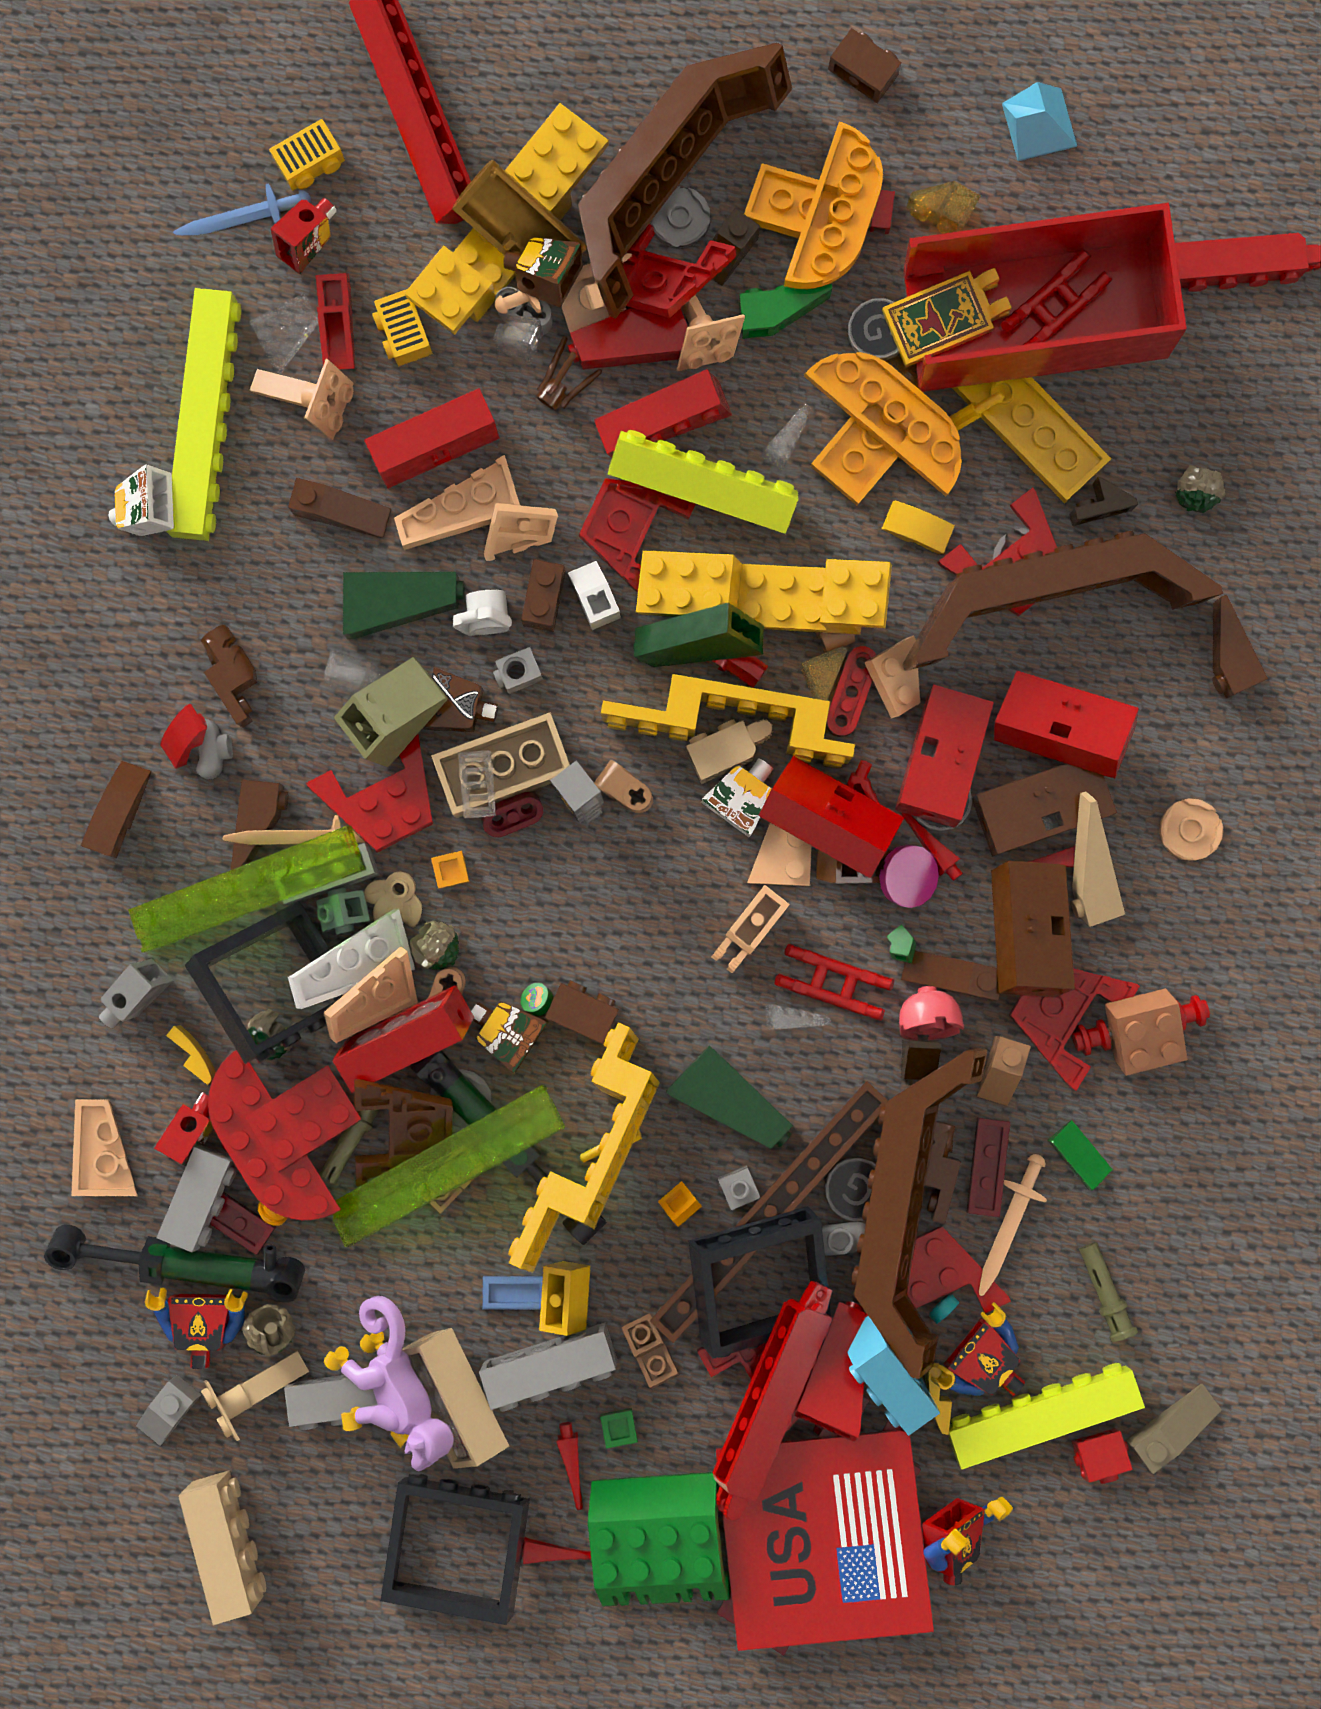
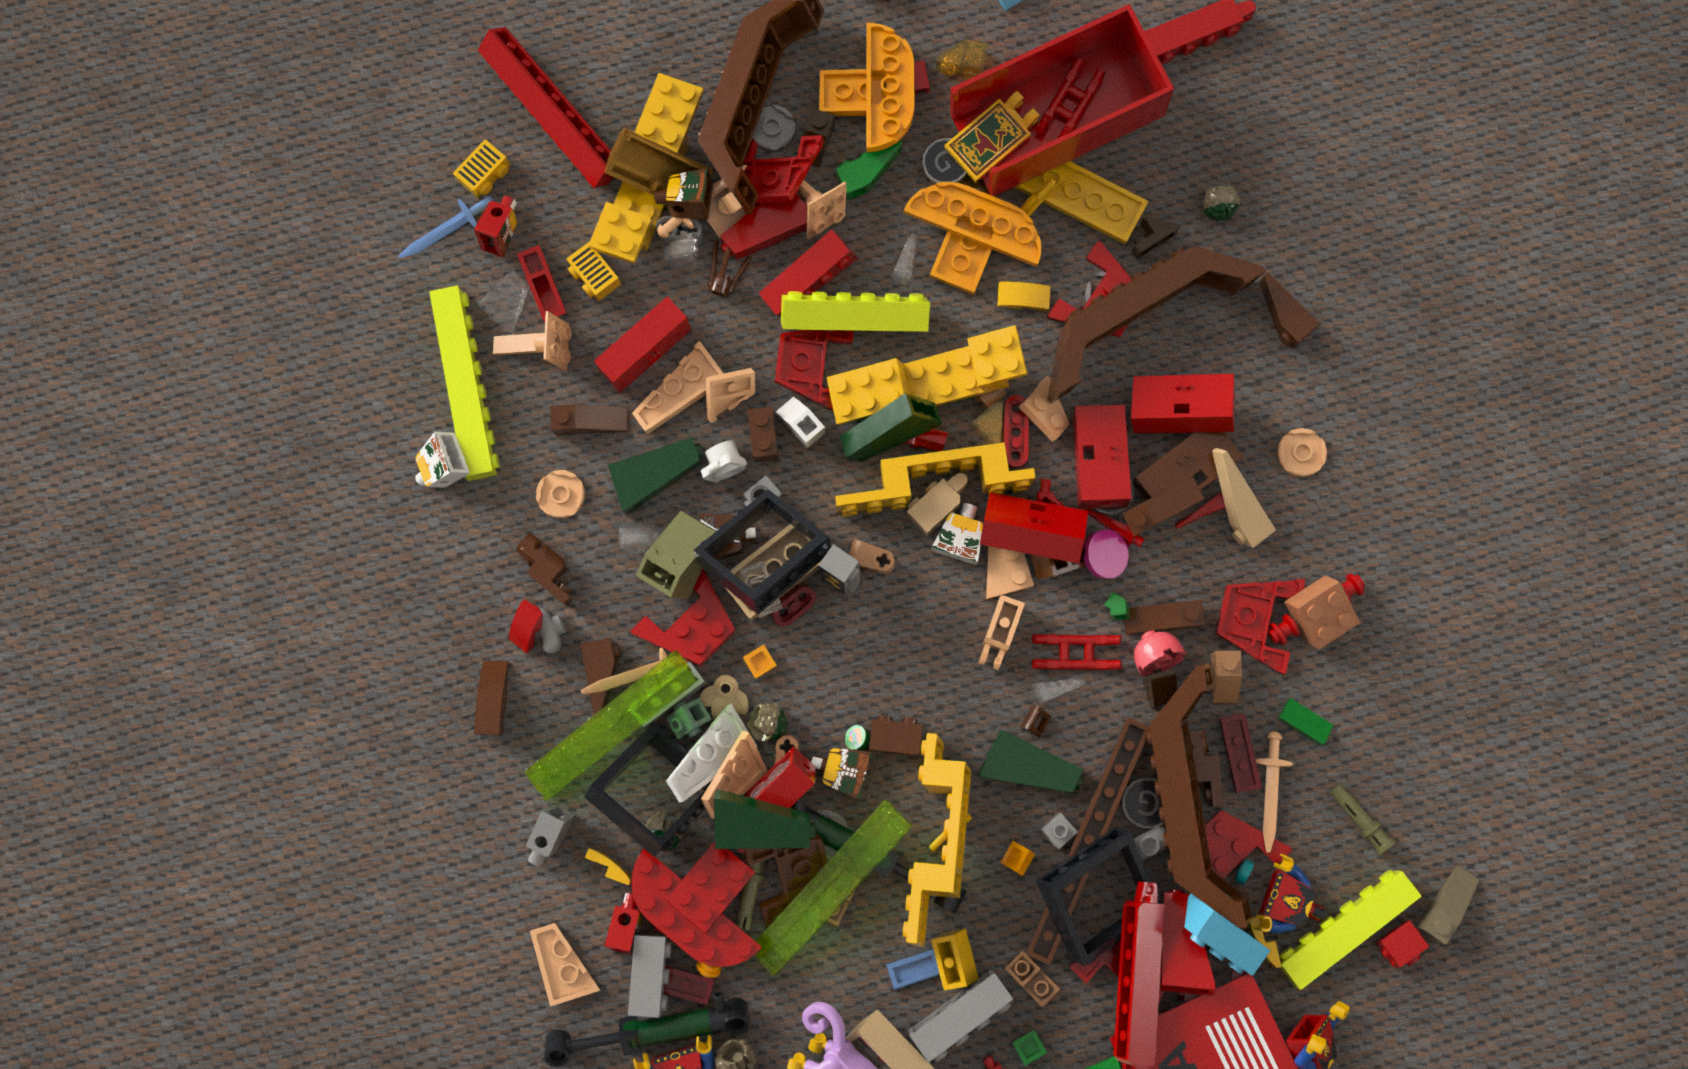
camera: 15 degrees left, 5 degrees down
(280, 599) = (567, 491): none -> light nougat tile
(380, 1066) = (754, 823): none -> dark green slope
(505, 779) = (786, 574): none -> black window
(757, 1048) = (1036, 721): none -> reddish brown slope
(997, 842) = (1163, 506): none -> reddish brown slope
(1032, 929) = (1211, 563): reddish brown brick -> none

